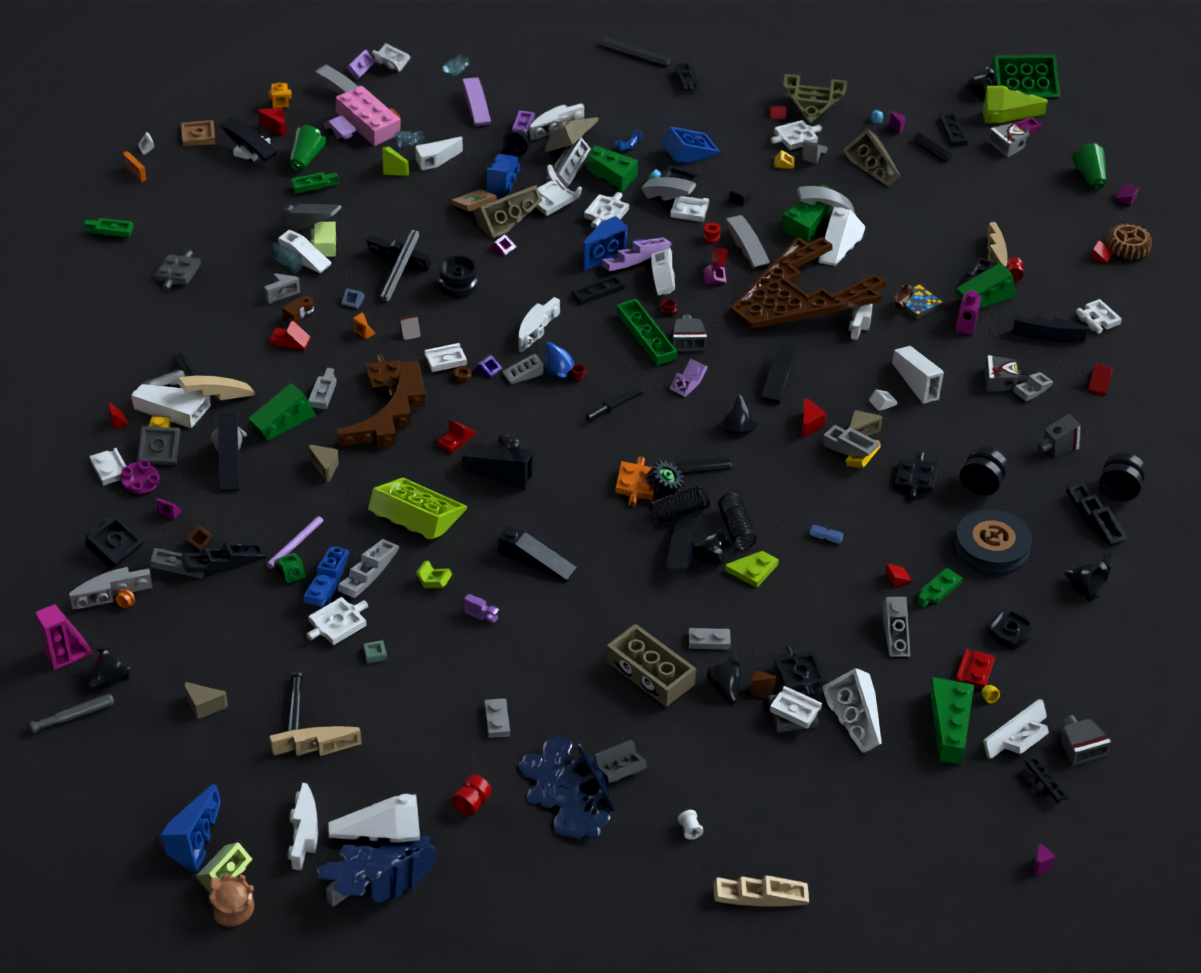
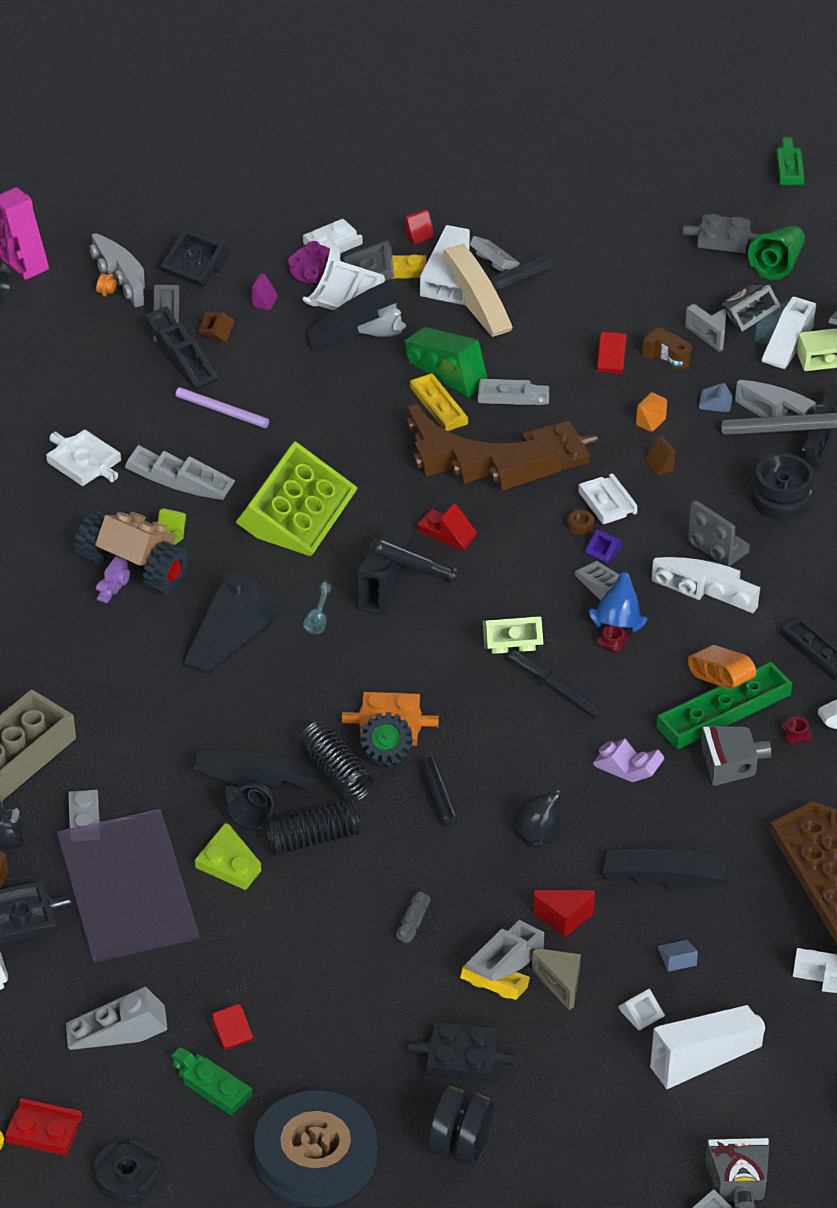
camera: 85 degrees right, 0 degrees up
(182, 458) = (341, 282): none -> white piece
(215, 242) = (776, 252): none -> green cone
(274, 261) = (746, 307): none -> dark grey torso
(291, 567) = (172, 403): green bracket -> none
(318, 428) = (438, 402): none -> yellow tile
(324, 460) = (364, 410): dark tan slope -> none
(328, 577) = (165, 436): blue slope -> none
(371, 270) = (771, 400): none -> light grey slope
(375, 651) = (38, 499): sand green tile -> none
(455, 587) = (137, 542): none -> brick
(498, 311) = (715, 535): none -> dark grey bracket
(537, 507) = (319, 619): none -> clear light blue hinge
(573, 411) = (512, 633): none -> yellowish green brick
(621, 323) = (722, 666): none -> orange beam
(776, 618) = (127, 885): none -> clear purple piece
(810, 486) = (413, 917): none -> dark grey axle
(831, 535) = (308, 942): medium blue piece -> none
(843, 378) = (678, 955): none -> sand blue slope

